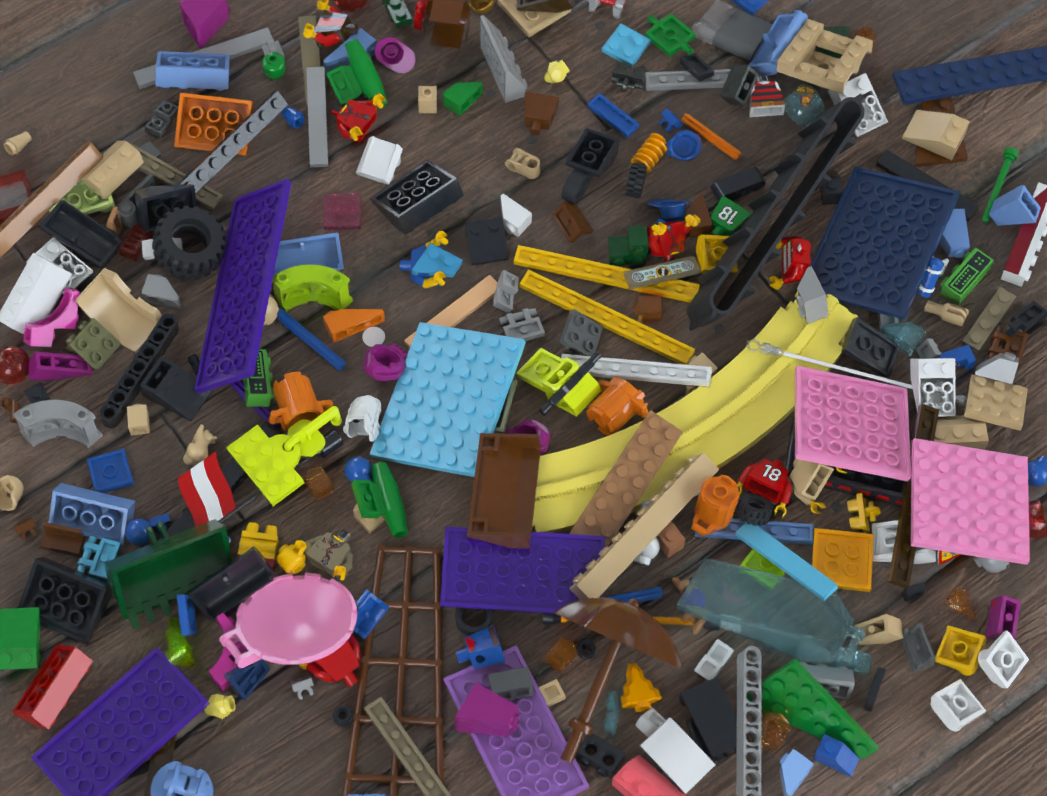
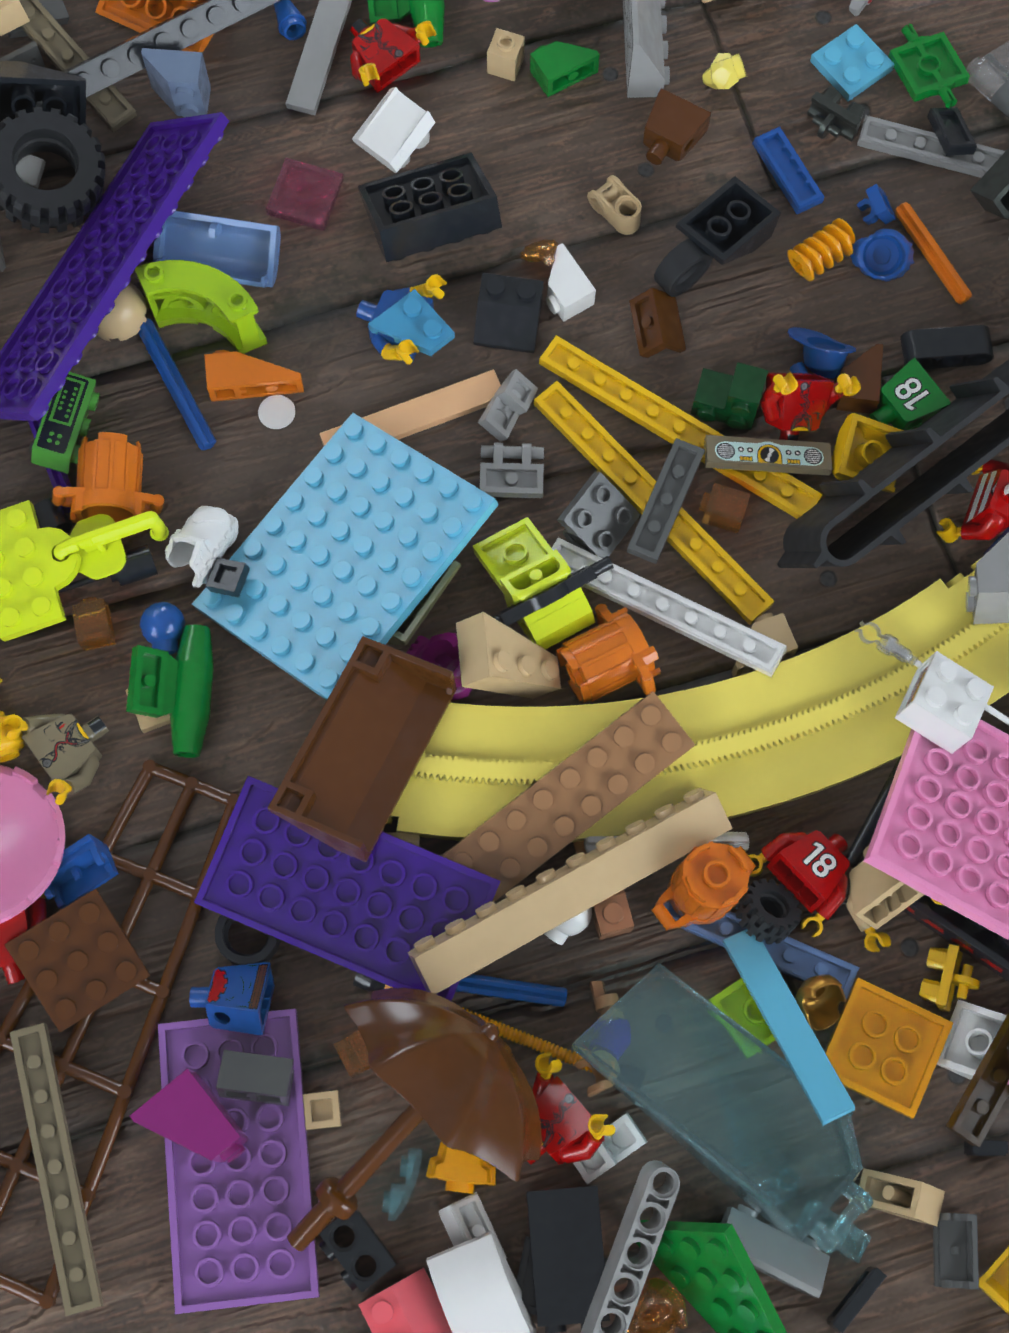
camera: 20 degrees right, 10 degrees up
(244, 170) = (179, 79): none -> sand blue slope
(384, 368) = (271, 461): magenta helmet -> none
(386, 657) = (77, 960): none -> reddish brown plate
(387, 430) = (227, 577): none -> black plate
(490, 202) = (540, 251): none -> clear orange rock
(560, 424) = (503, 660): none -> tan wedge
(615, 314) = (665, 501): none -> dark grey plate
(636, 180) = (783, 288): black tyre -> none
(692, 651) = (566, 1126): none -> red torso
(799, 543) = (820, 1000): none -> pearl gold hair
(807, 367) = (944, 702): none -> white piece

